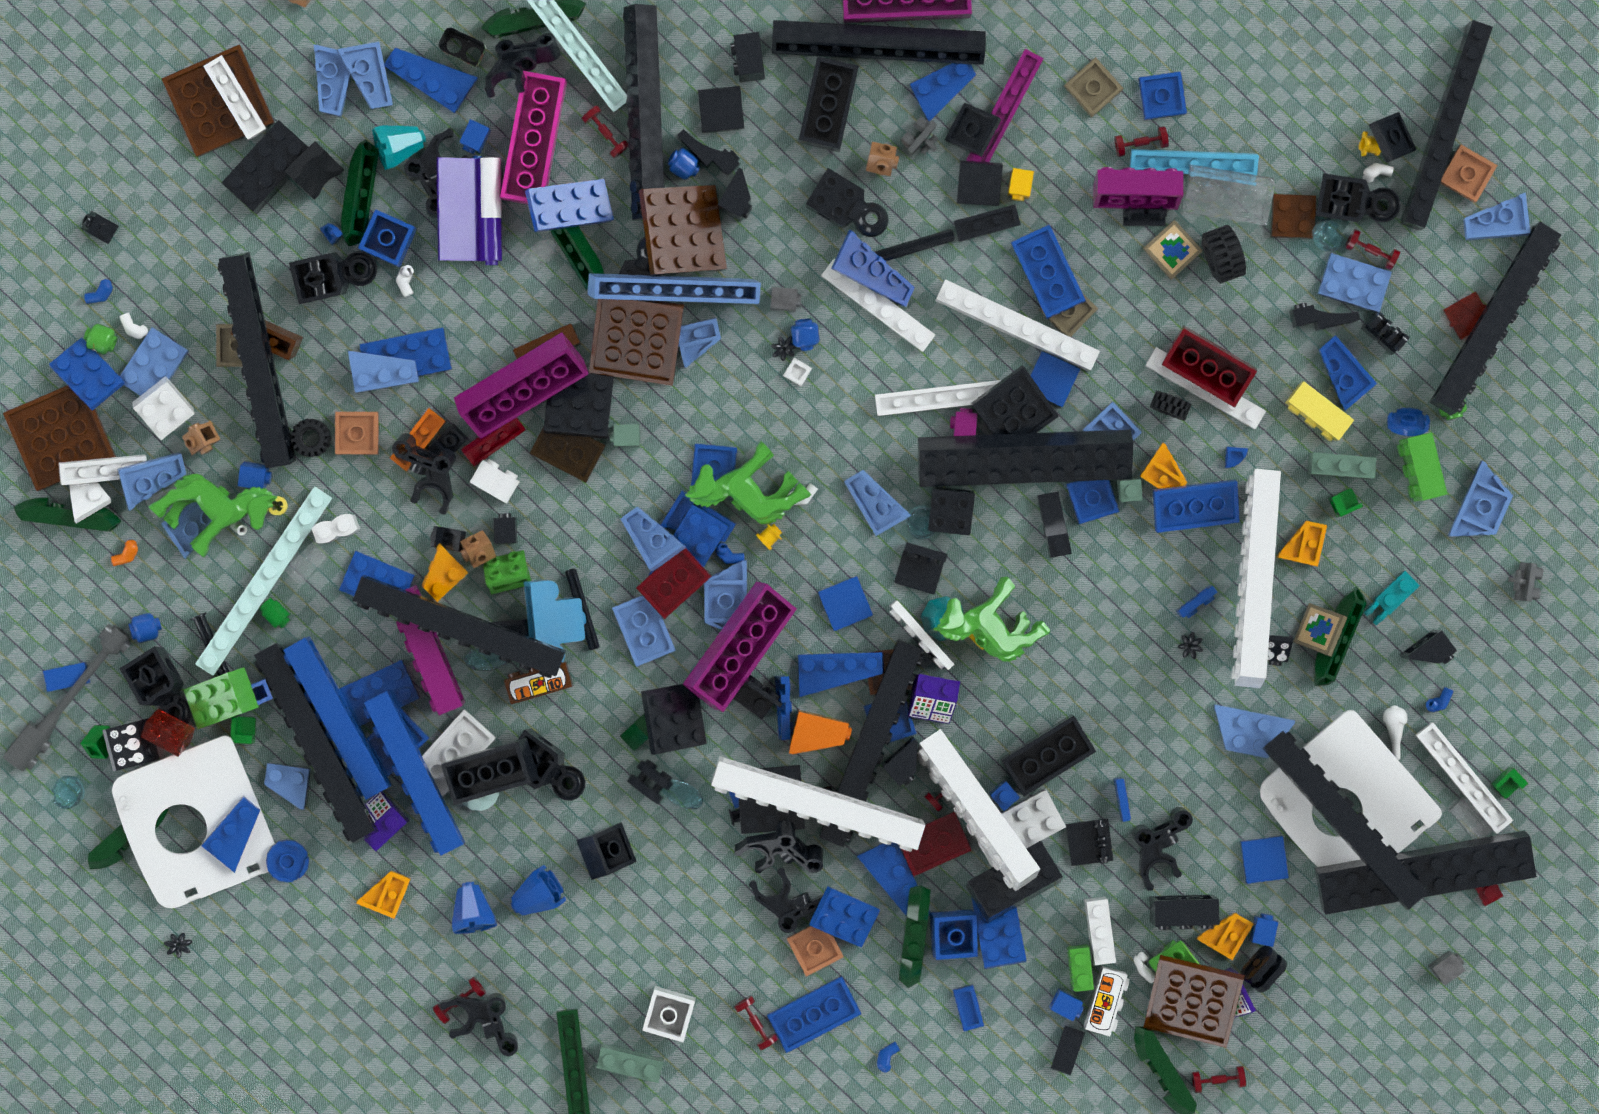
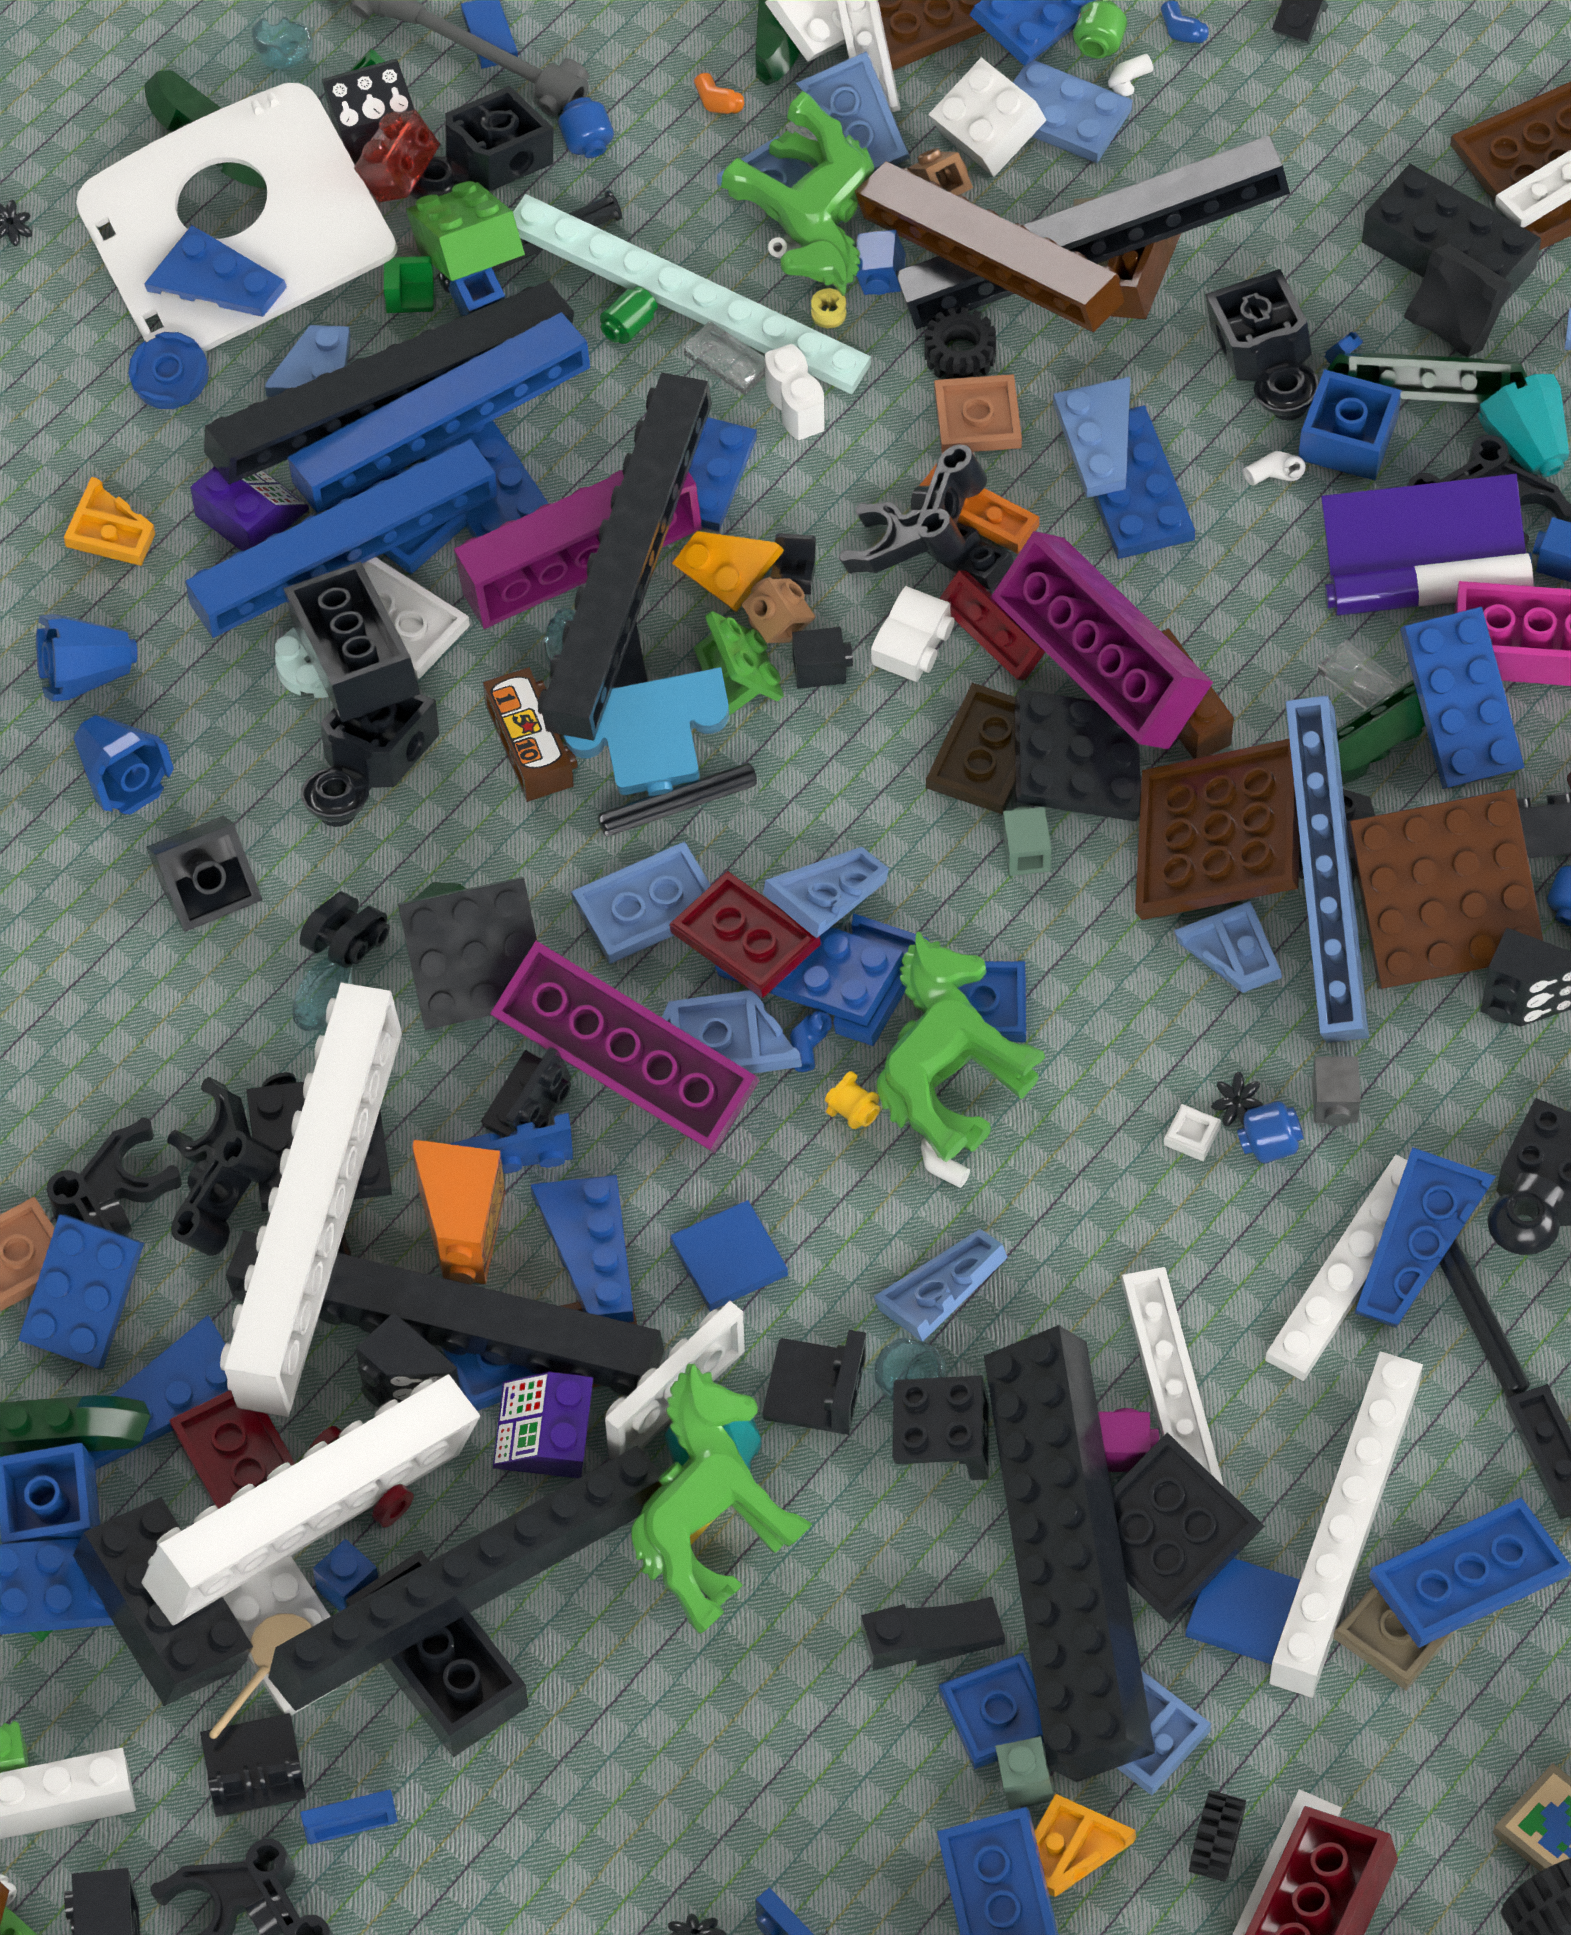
camera: 85 degrees right, 30 degrees down
(268, 417) = (990, 246): none -> brick
(1023, 739) = (463, 1579): none -> black brick
(1037, 827) = (265, 1638): none -> tan piece

